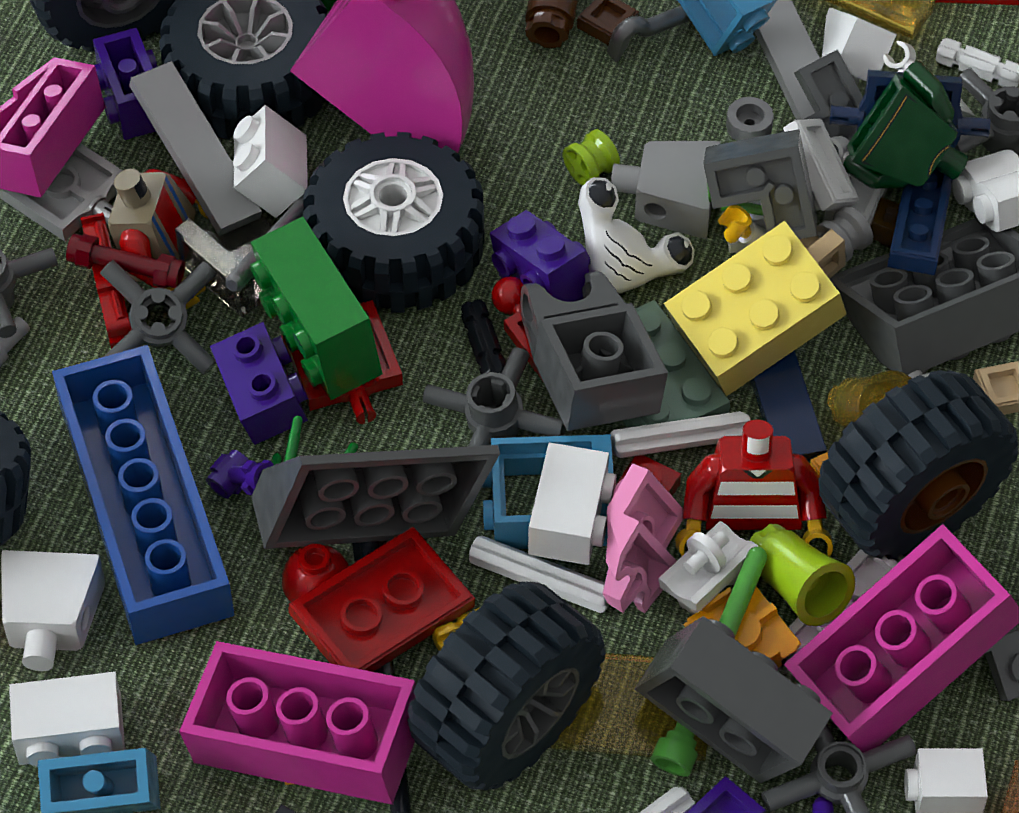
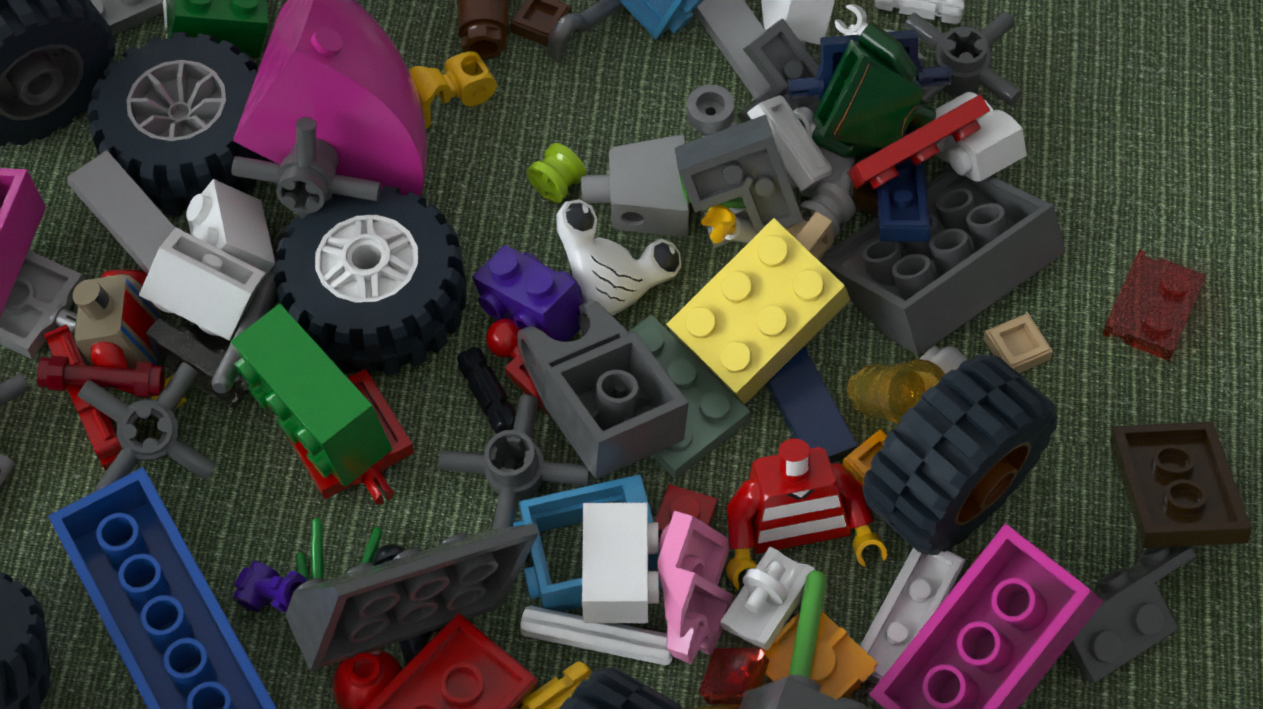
camera: 10 degrees left, 5 degrees up
(119, 59) = (52, 157): dark purple brick -> none
(234, 193) = (201, 284): none -> white brick
(259, 382) = (267, 482): dark purple brick -> none
(354, 111) = (307, 174): none -> dark grey bar
(522, 58) = (463, 78): none -> yellow leg
(656, 626) = (732, 674): none -> clear red plate
(676, 434) = (708, 457): white axle -> none
(805, 577) = (865, 590): lime plant -> none
(943, 182) = (920, 144): none -> red plate

